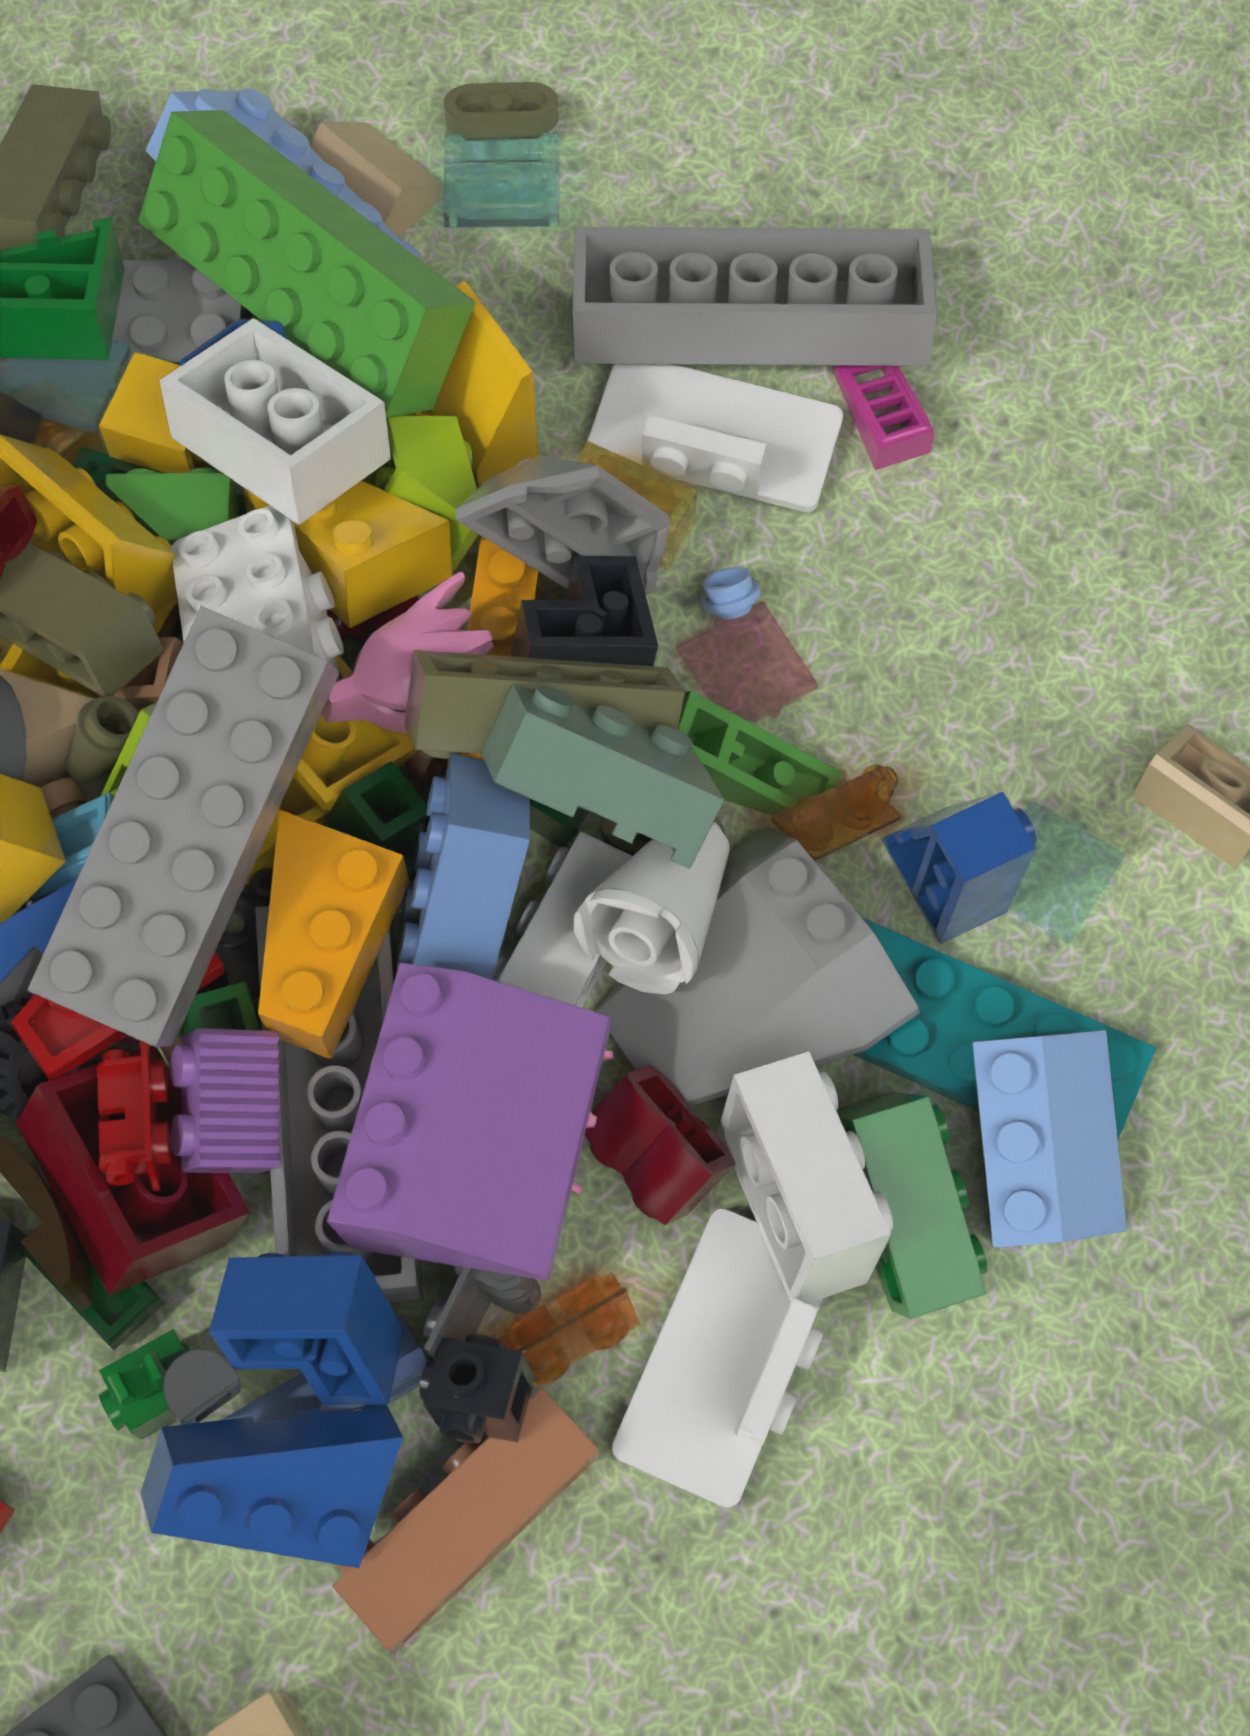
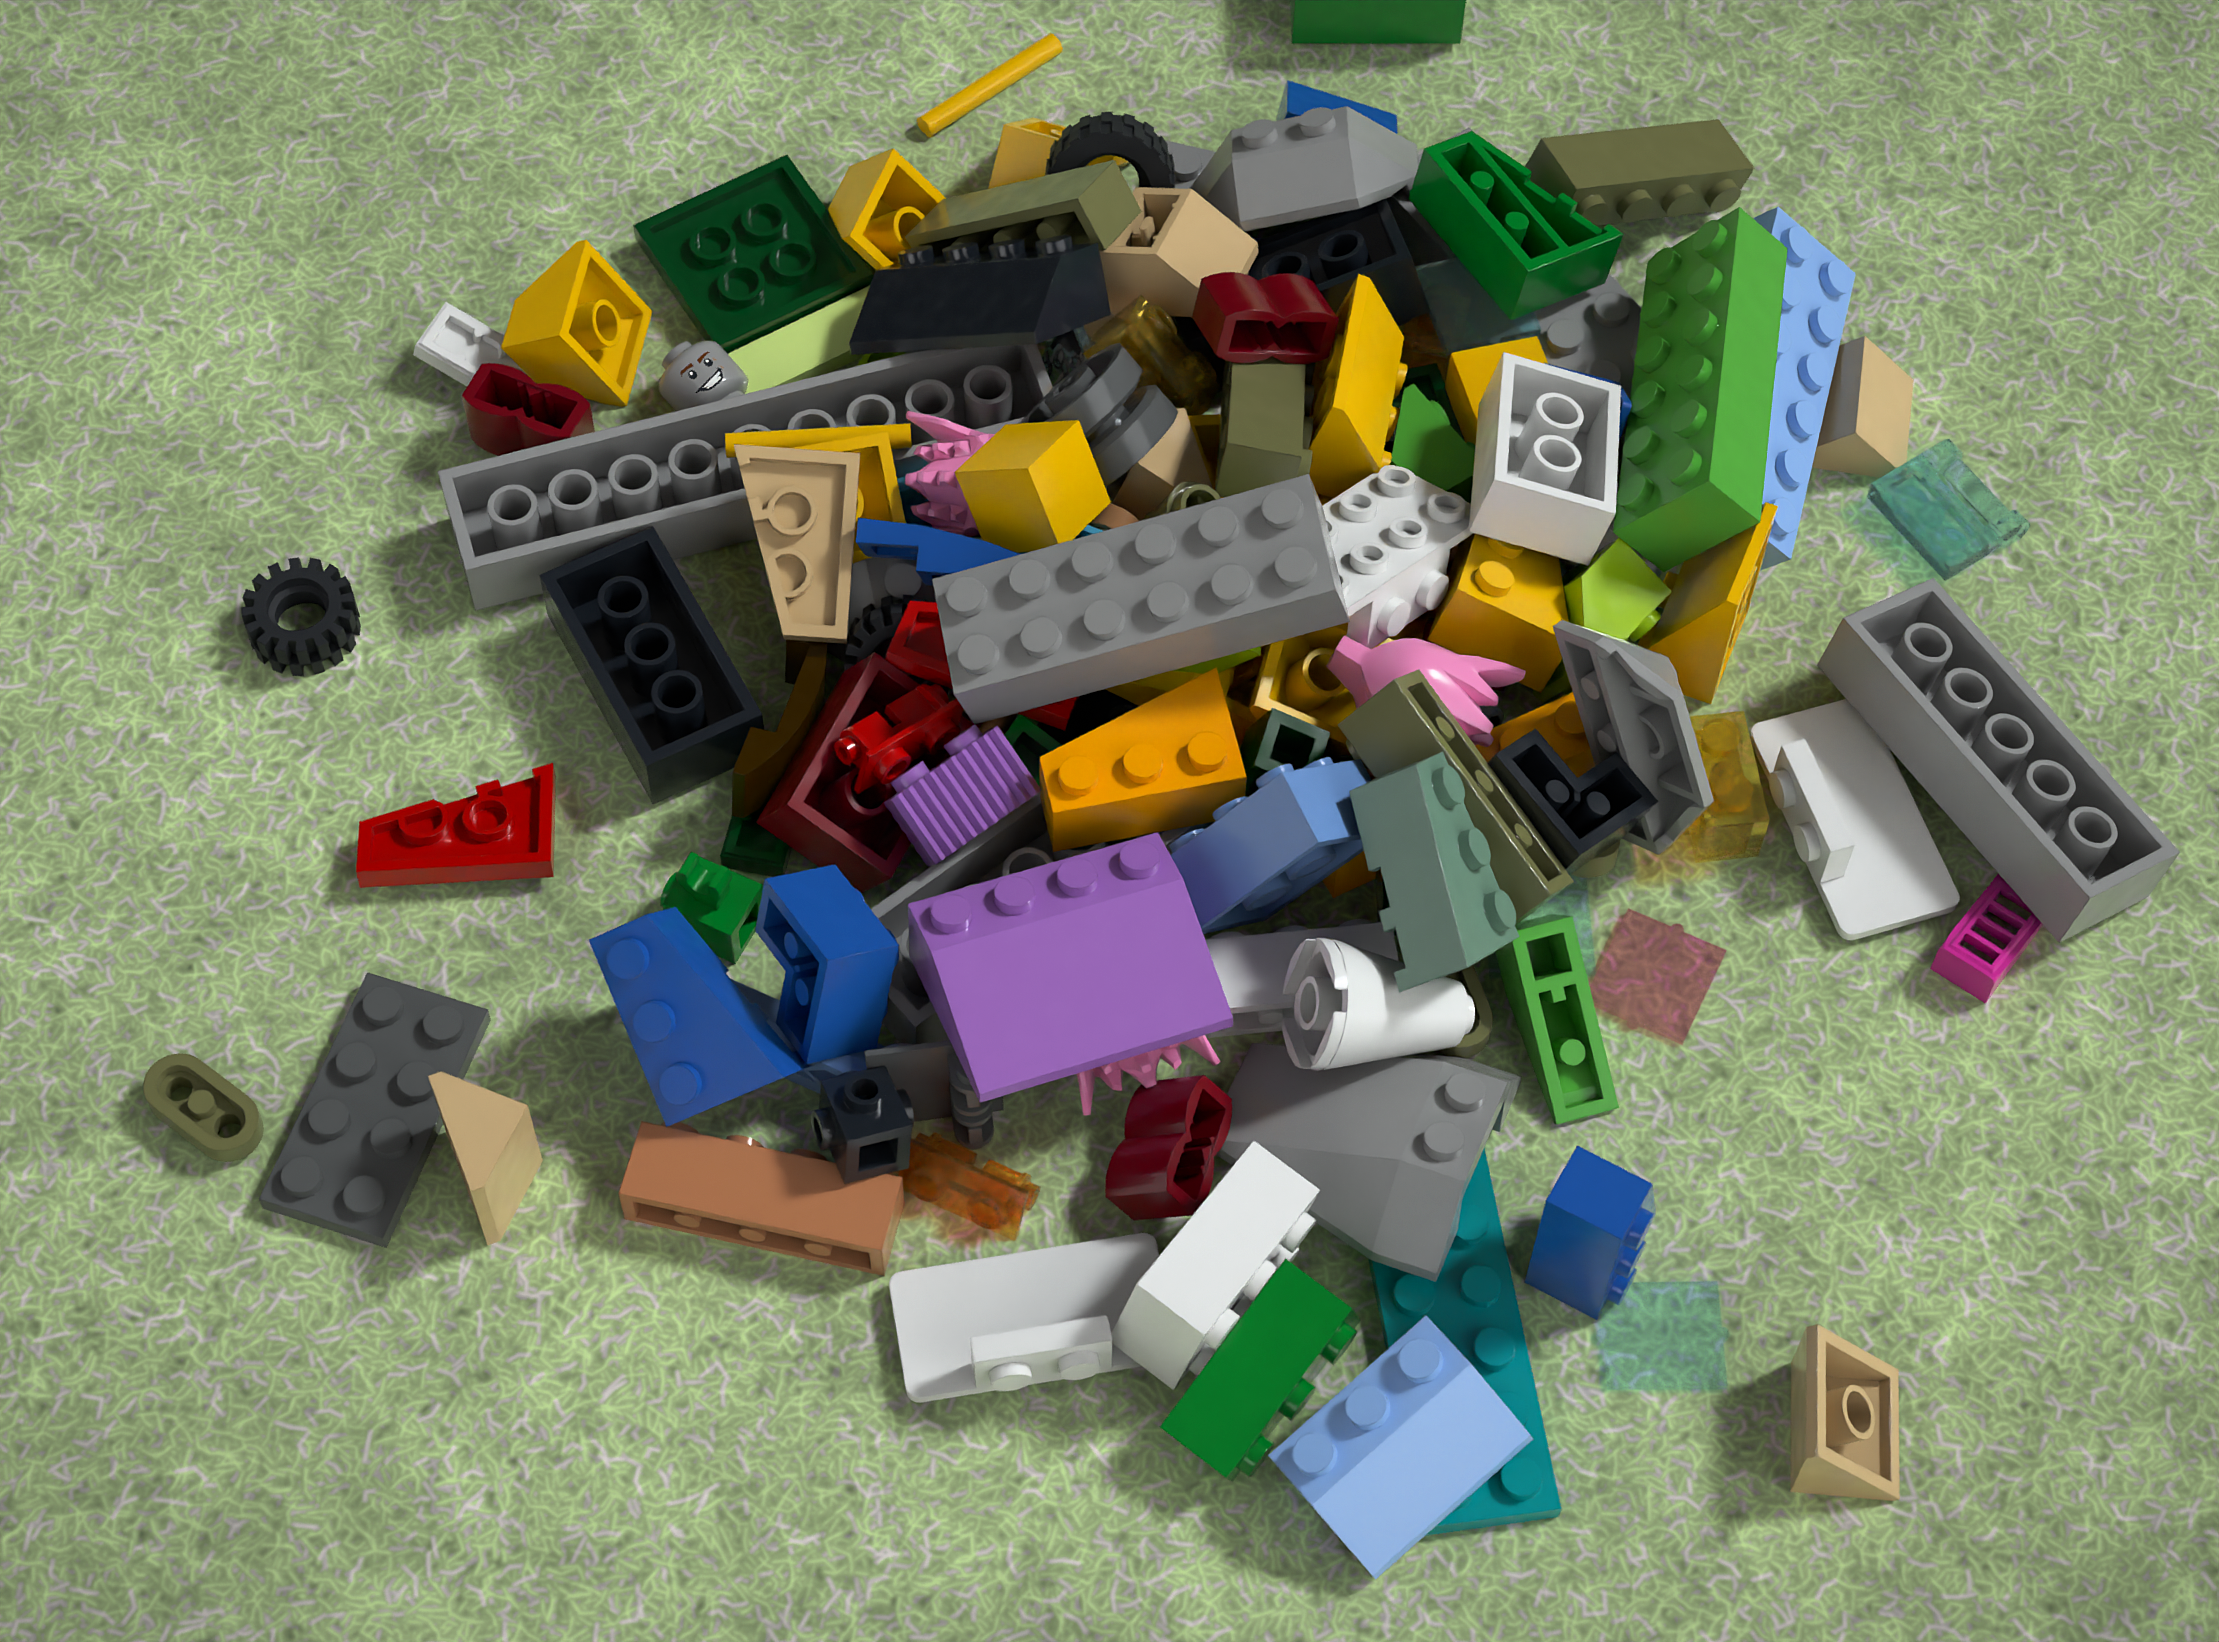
camera: 55 degrees right, 10 degrees down
(199, 1385) = (726, 919): dark grey brick -> none
(501, 110) = (2011, 466): olive plate -> none
(729, 593) = (1708, 916): light blue plate -> none
(842, 813) = (1565, 1118): clear orange hinge -> none

